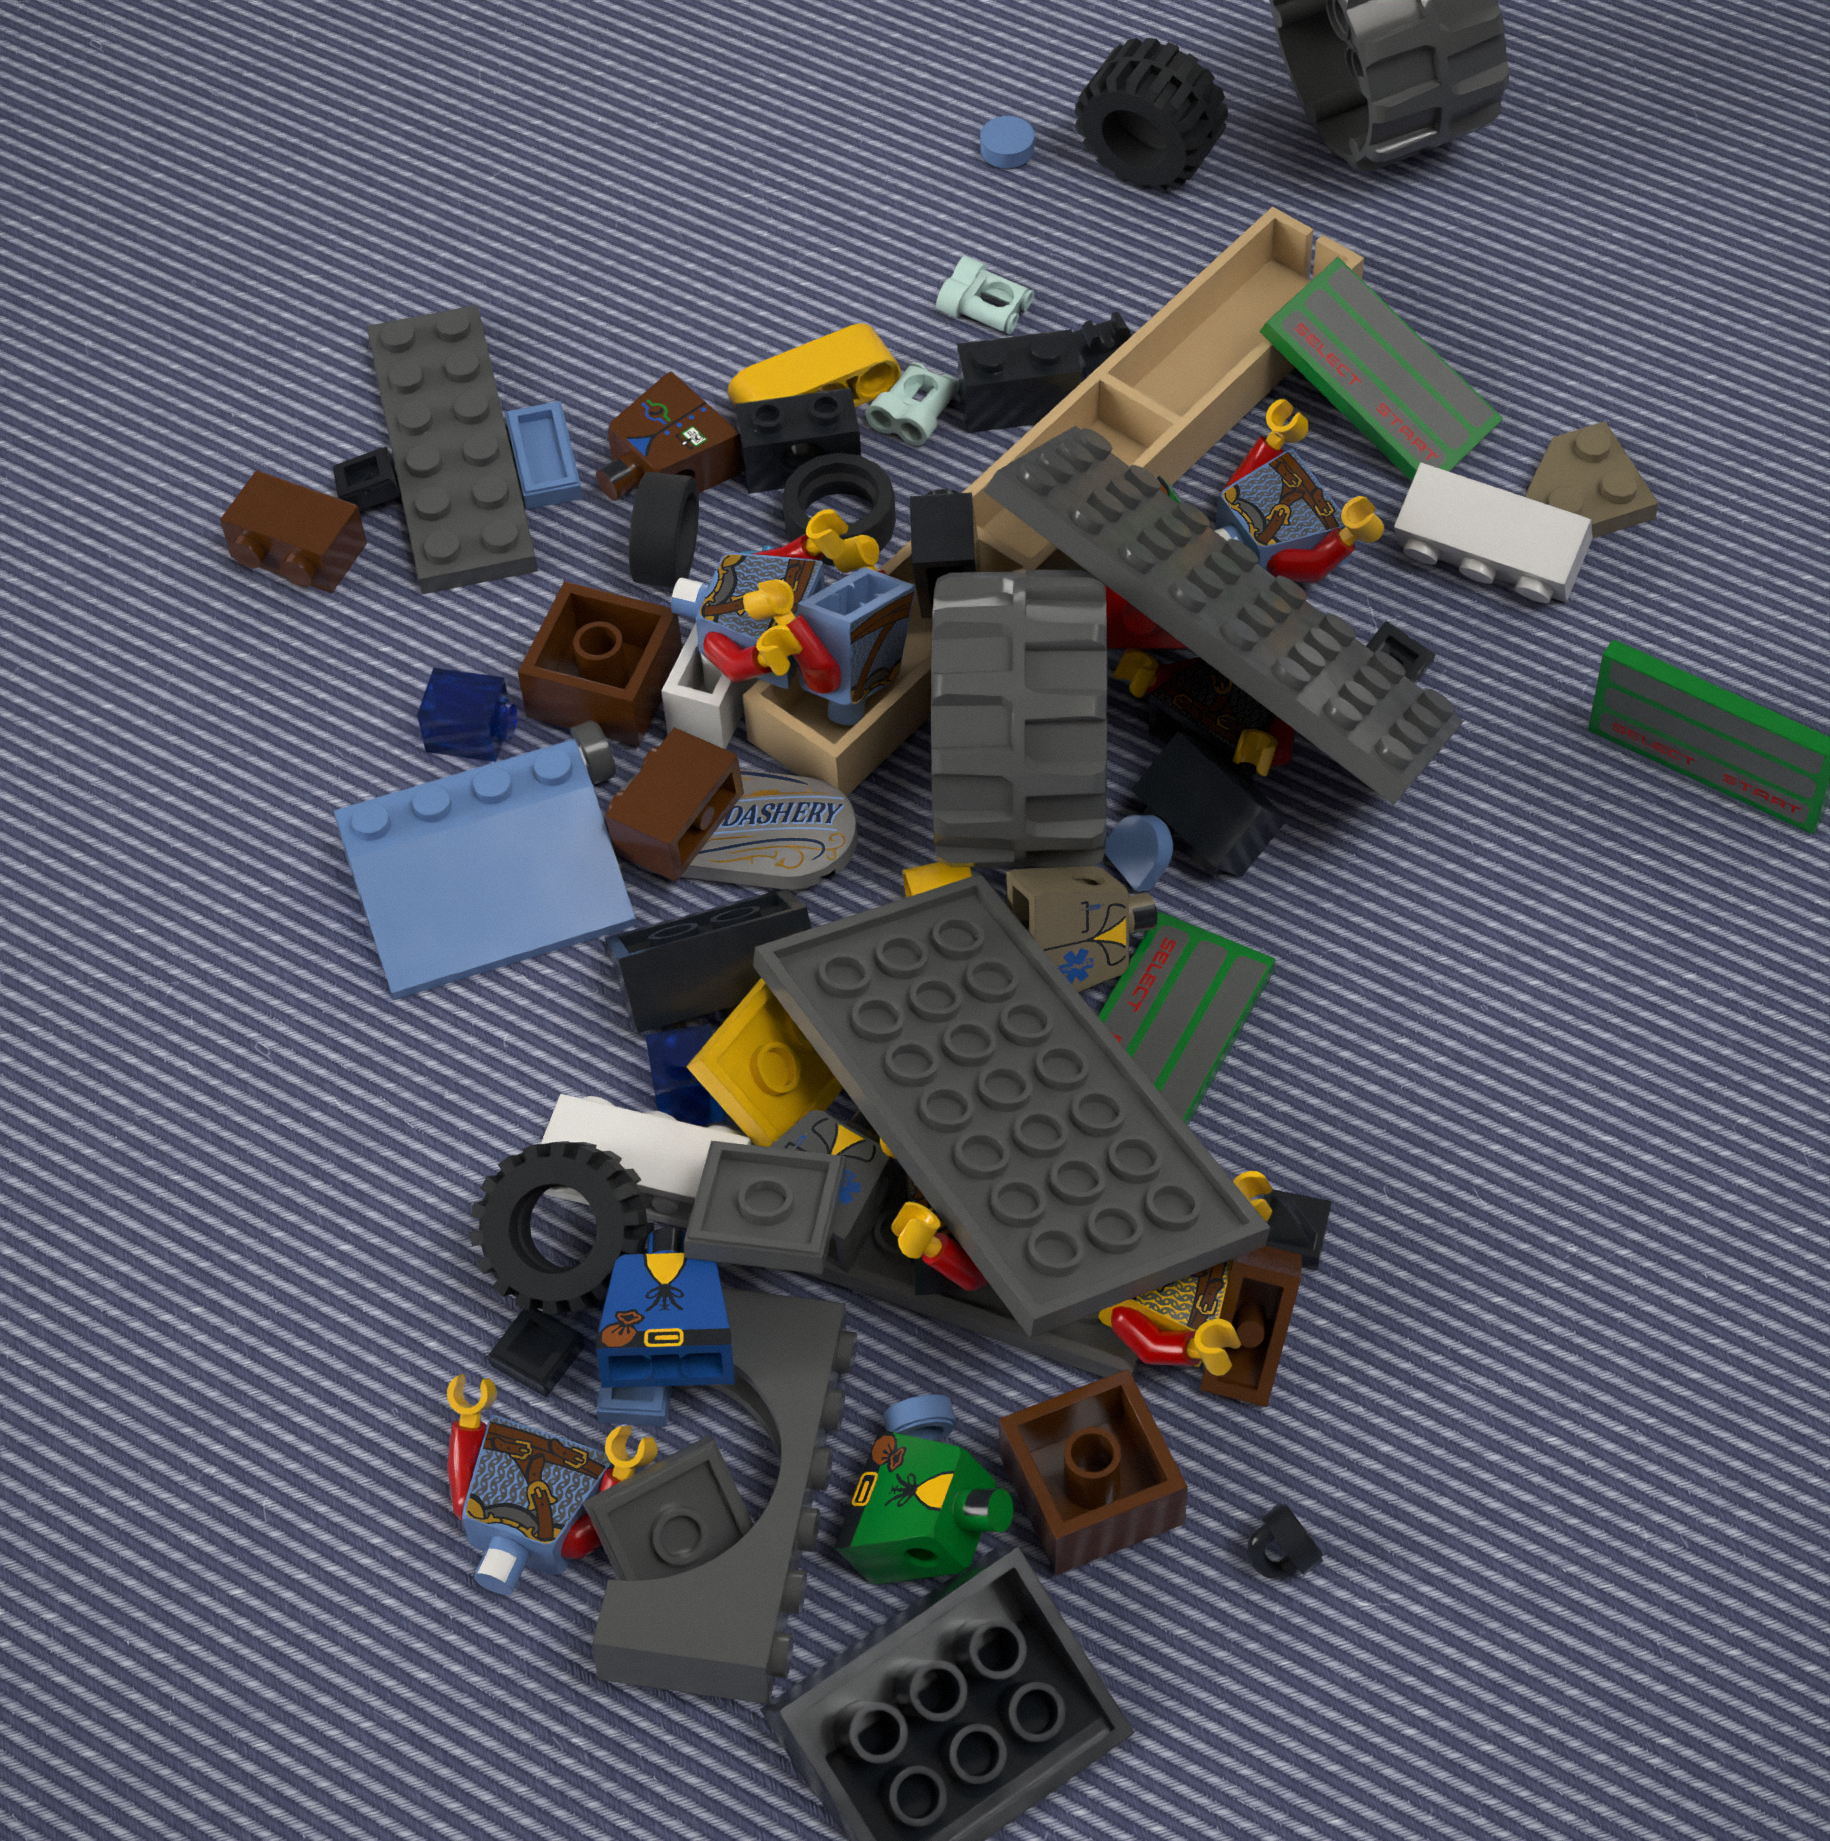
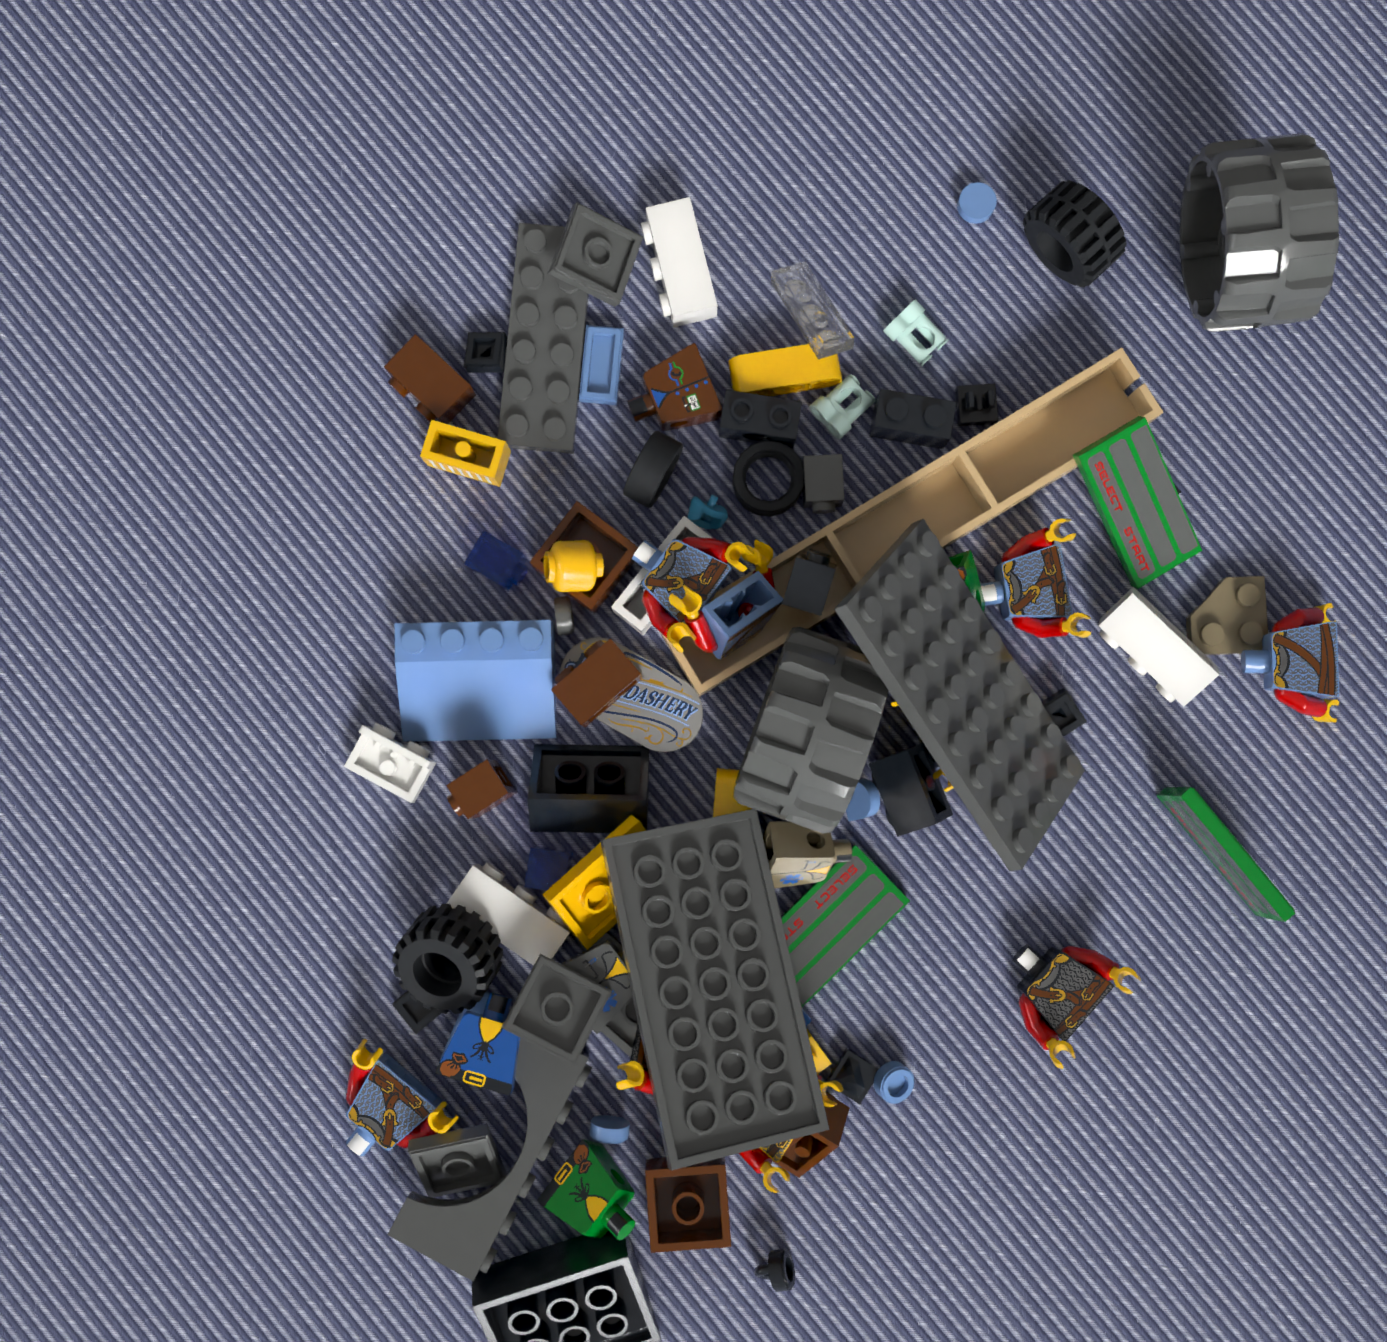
camera: 15 degrees right, 30 degrees up
(376, 591) = (465, 453): none -> yellow brick
(381, 1011) = (390, 763): none -> white bracket
(491, 324) = (595, 254): none -> dark grey tile
(541, 988) = (480, 790): none -> reddish brown brick
(585, 640) = (572, 566): none -> yellow head
(617, 305) = (679, 262): none -> white brick
(825, 295) = (812, 310): none -> clear plate
(915, 471) = (823, 483): none -> dark grey brick
(1359, 1211) = (894, 1082): none -> medium blue tile
(1569, 992) = (1063, 992): none -> torso
(1706, 490) = (1300, 662): none -> torso

